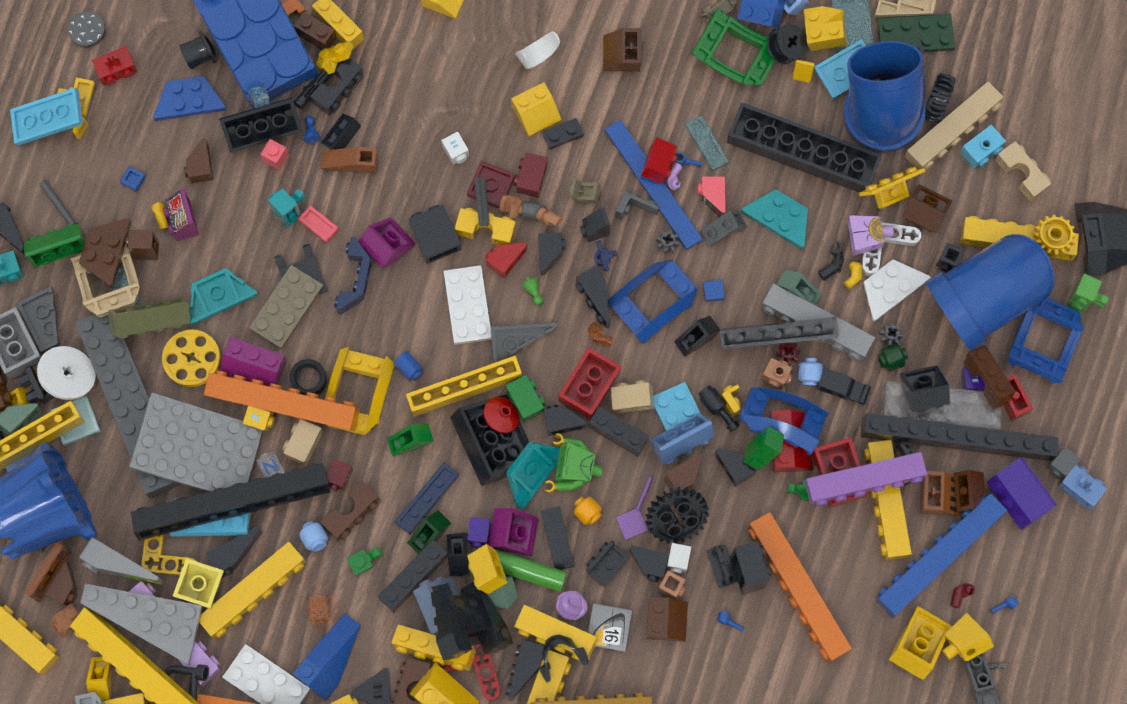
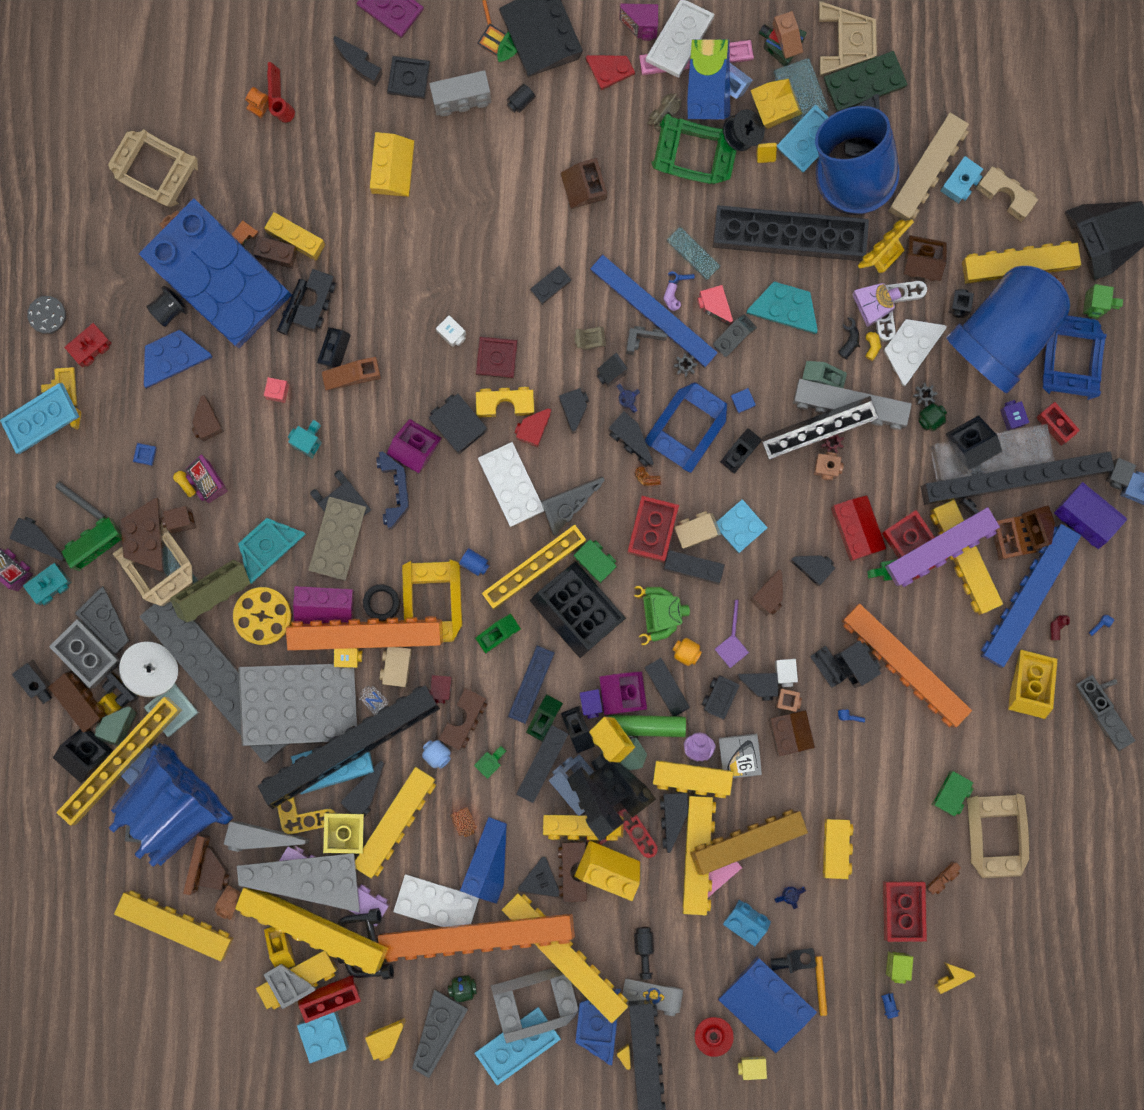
camera: 20 degrees left, 10 degrees up
(258, 95) = (244, 339): clear light blue leg -> none
(260, 125) = (254, 366): black slope -> none
(311, 135) = (305, 357): blue piece -> none
(318, 224) = (341, 446): coral tile -> none
(330, 57) = (299, 274): yellow hinge -> none
(481, 198) = (494, 379): dark grey axle -> none
(497, 419) = (573, 589): red dish -> none
(530, 210) = (543, 372): nougat piece -> none
(531, 174) = (533, 336): dark red brick -> none
(531, 286) = (568, 449): bright green piece -> none
(531, 471) = (623, 630): teal wing -> none
(536, 109) = (517, 268): yellow slope -> none
(539, 50) = (501, 207): white piece -> none
(552, 642) = (694, 790): black helmet -> none
(562, 420) = (636, 571): black slope -> none
(658, 161) = (654, 286): red brick -> none
(682, 438) = (756, 556): medium blue slope -> none
(690, 508) = (763, 643): black gear -> none
(716, 405) = (779, 513): black piece -> none
(733, 404) = (791, 507): yellow bracket -> none
(763, 448) = (837, 545): green brick -> none
(810, 371) = (858, 454): light blue head -> none
(811, 425) = (875, 509): blue wedge -> none
(843, 386) = (893, 459): black piece -> none
(939, 98) = (908, 142): black gear -> none
(966, 639) = (1076, 670): yellow torso -> none
(997, 387) = (1042, 421): reddish brown arch -> none
(1061, 228) = (1048, 260): yellow gear -> none

